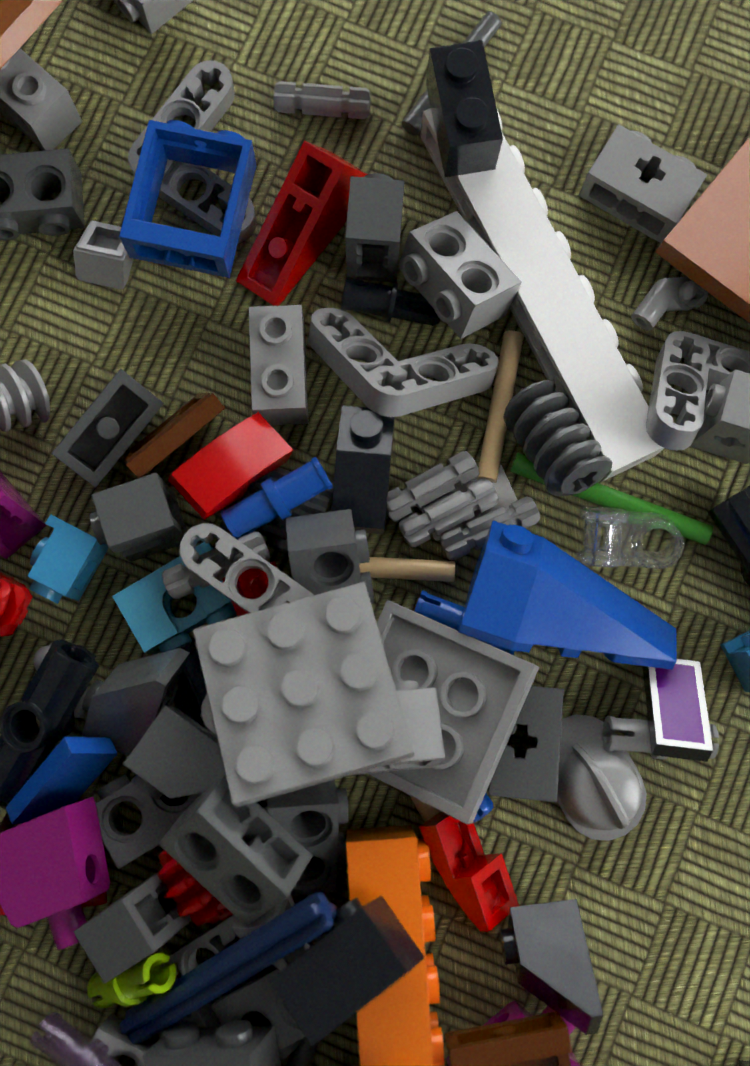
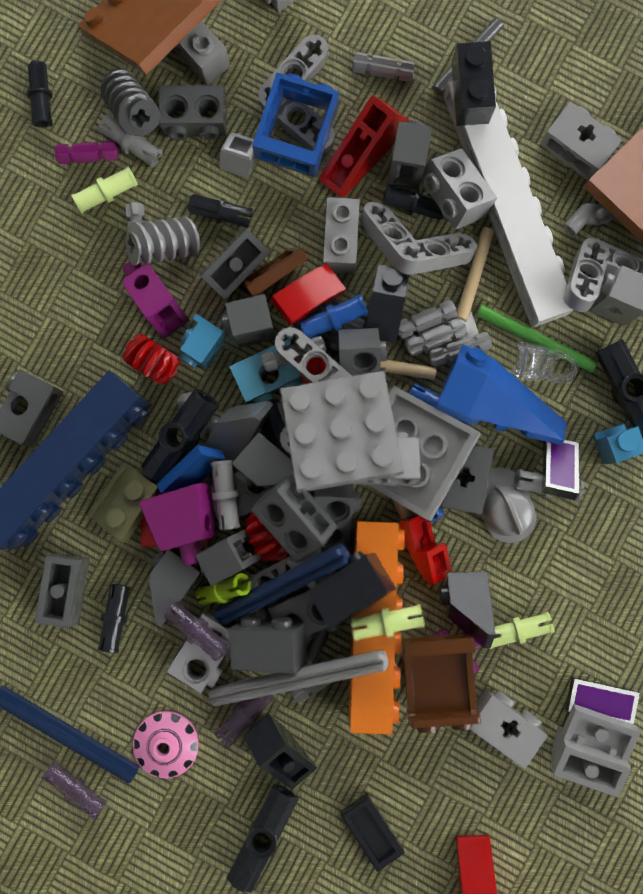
camera: 15 degrees right, 5 degrees up
(38, 980) = (170, 582): none -> dark grey slope
(80, 344) = (219, 210): none -> black axle
(120, 817) = (225, 494): none -> light grey pin
(414, 1019) = (387, 622): none -> yellowish green pin
(555, 439) = (506, 298): dark grey piece -> none
(647, 989) = (522, 629): none -> yellowish green pin

